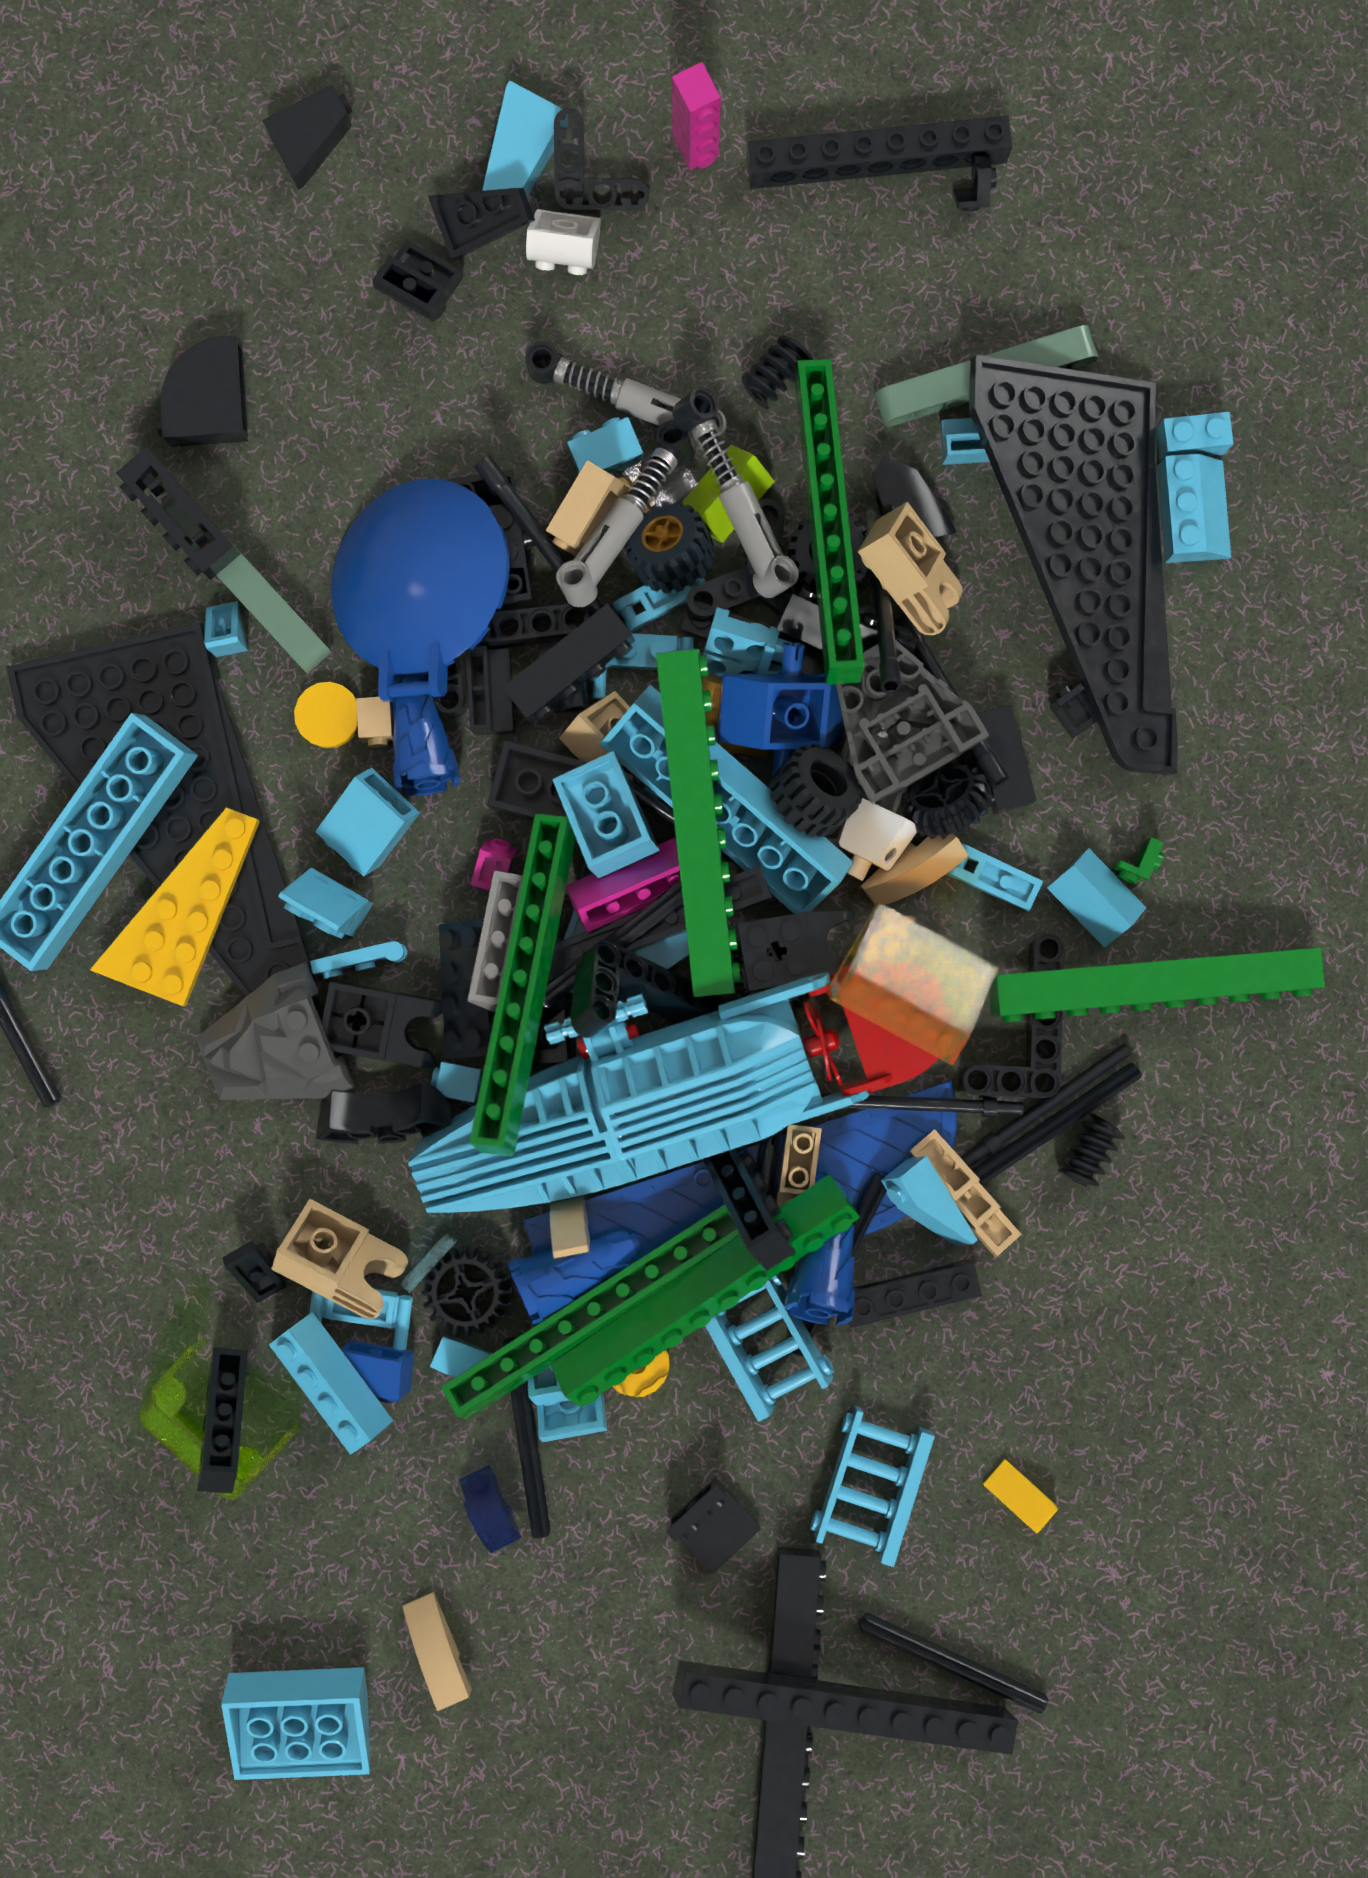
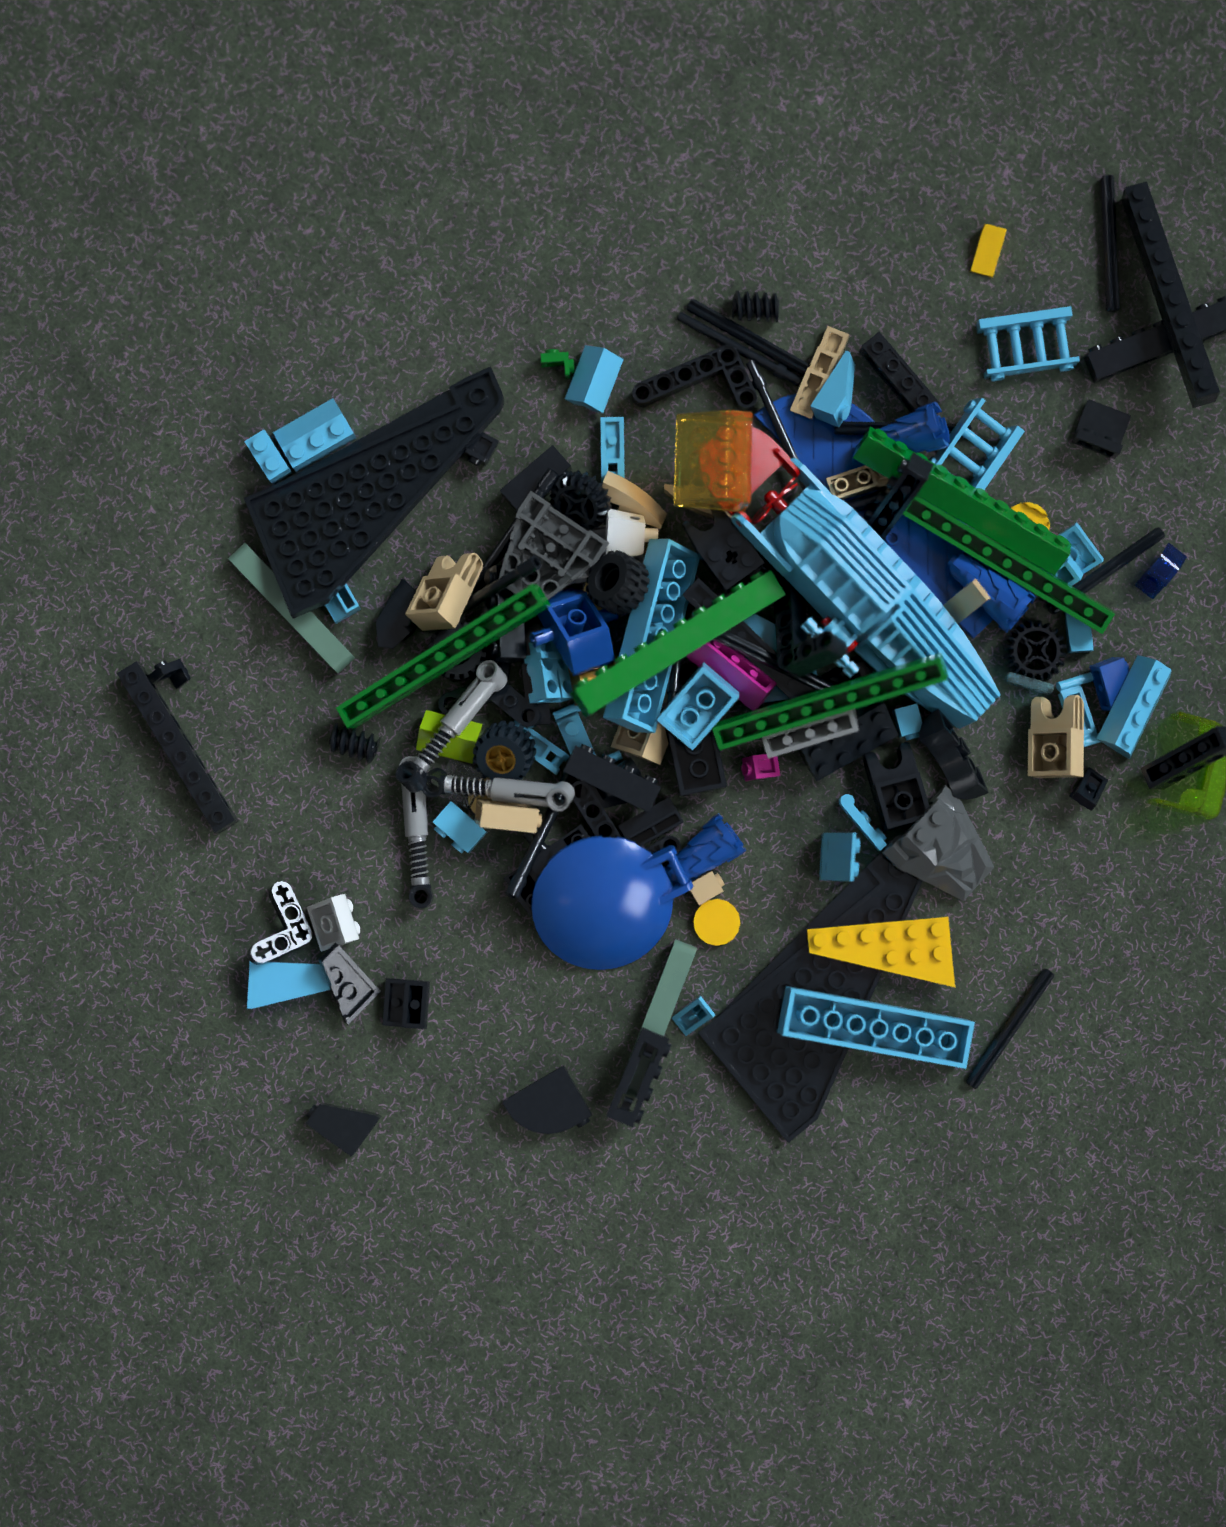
camera: 115 degrees left, 0 degrees up
(367, 822) = (774, 857): medium azure brick -> none
(696, 116) = (220, 868): dark pink brick -> none
(1156, 982) = (631, 316): green brick -> none

